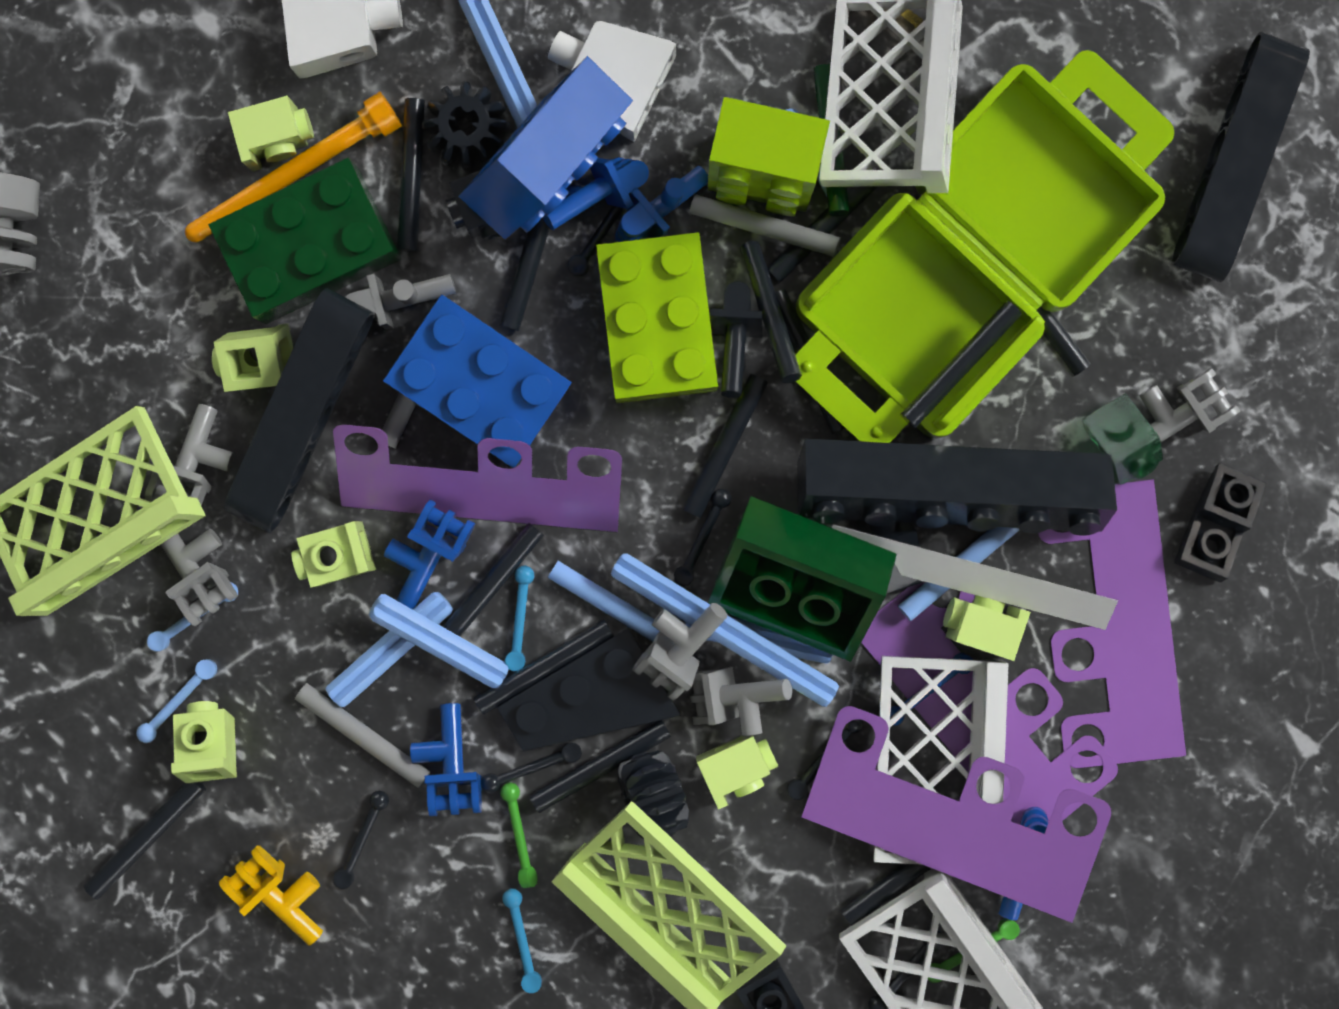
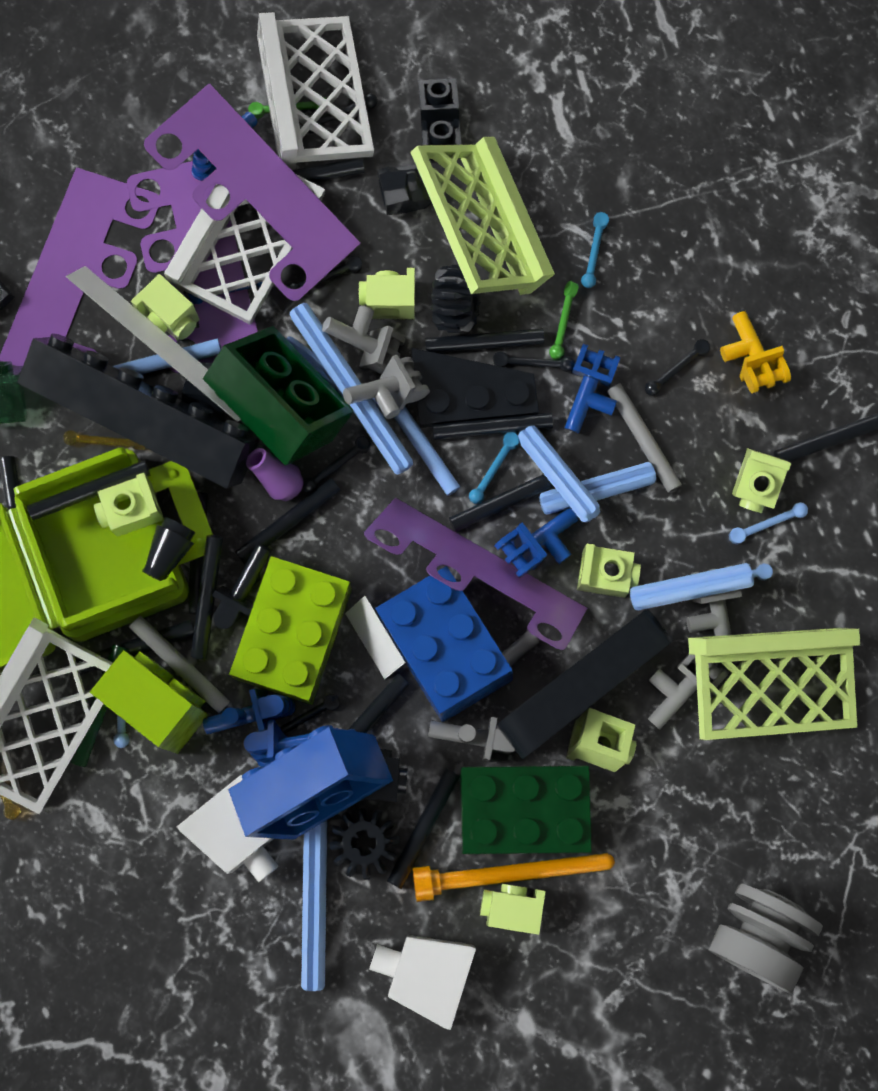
camera: 160 degrees left, 10 degrees down
(225, 575) = (692, 586): none -> light blue axle
(561, 356) = (375, 637): none -> white sticker
(762, 483) = (277, 479): none -> medium lavender cone
(783, 908) = (402, 189): none -> black rock
(836, 337) = (167, 548): none -> black cone
(891, 378) = (141, 513): none -> yellowish green brick
(1020, 426) = (71, 438): none -> clear yellow hinge

